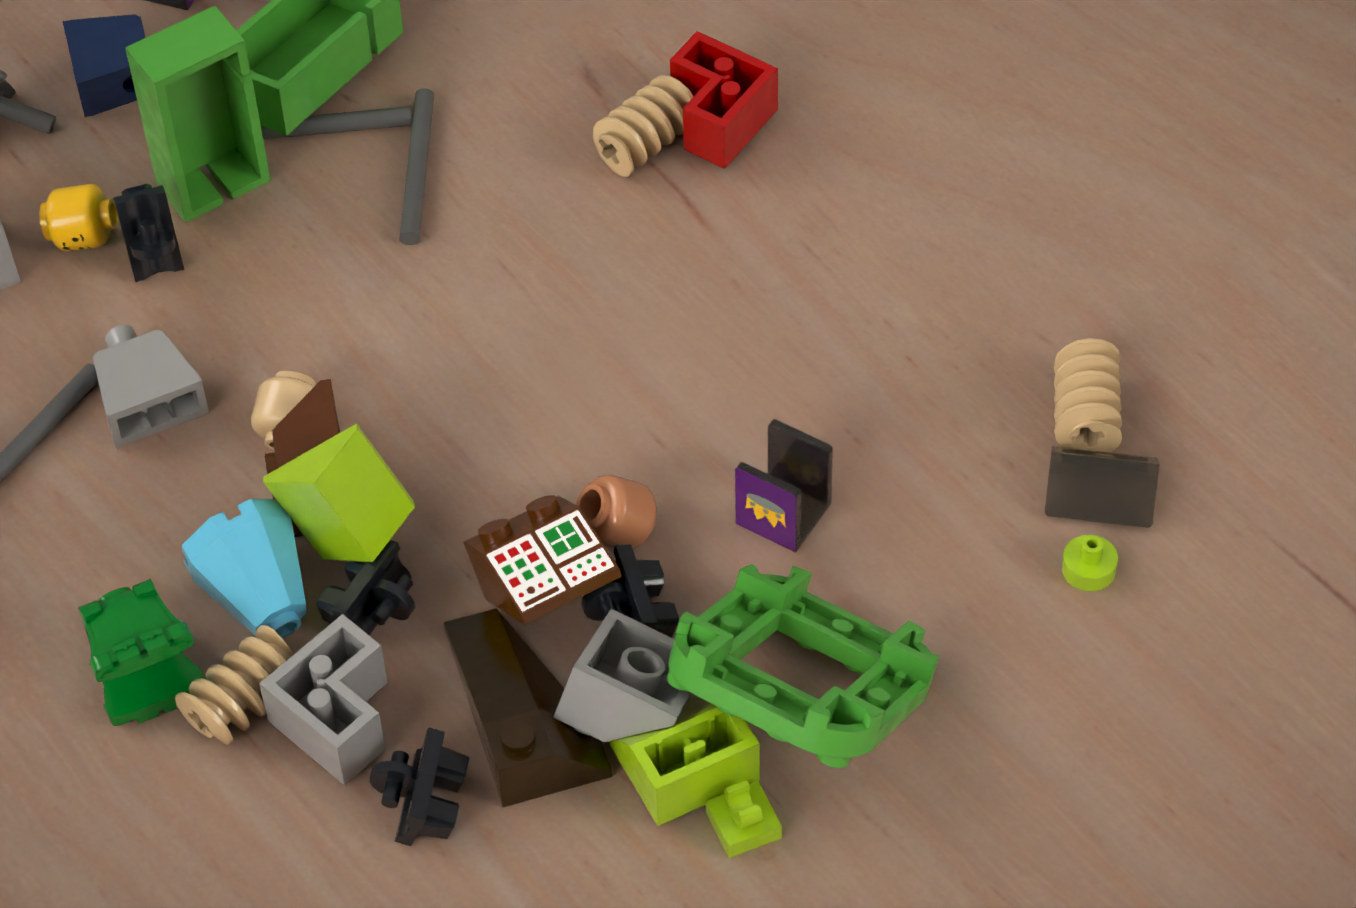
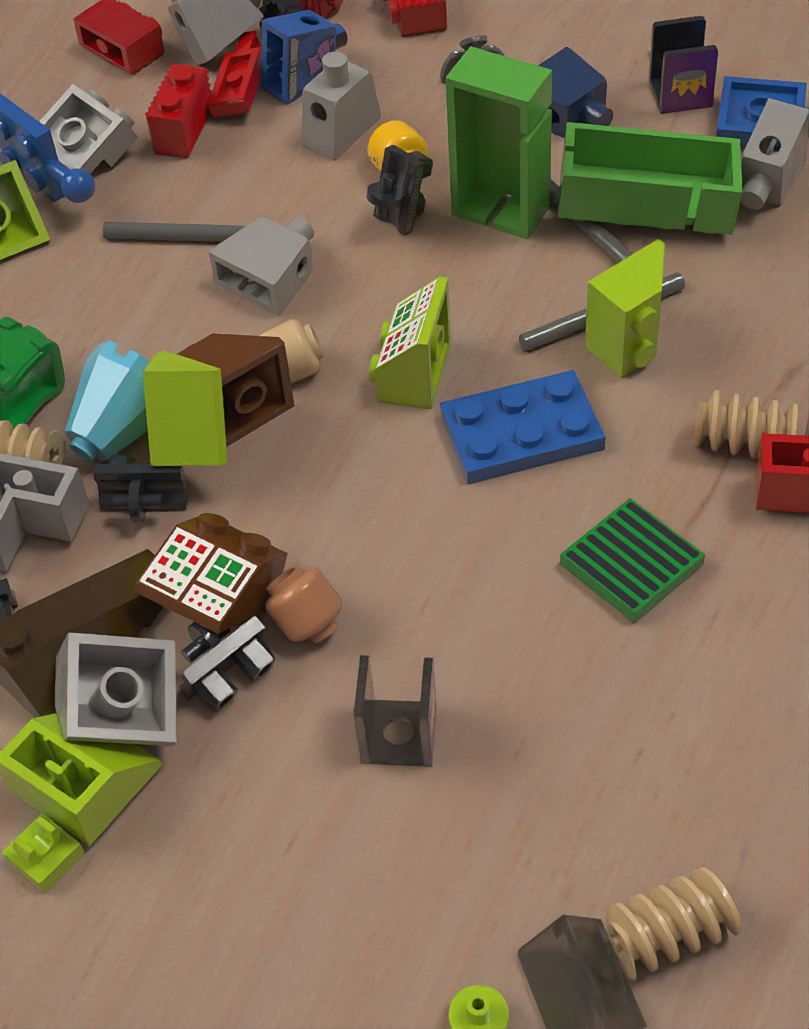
camera: 65 degrees right, 0 degrees up
(370, 304) = (414, 347): none -> lime slope
(465, 133) = (626, 310): none -> lime slope
(509, 283) = (522, 426): none -> blue plate
(718, 272) = (632, 560): none -> tile
(841, 722) = (167, 889): bright green plate -> none

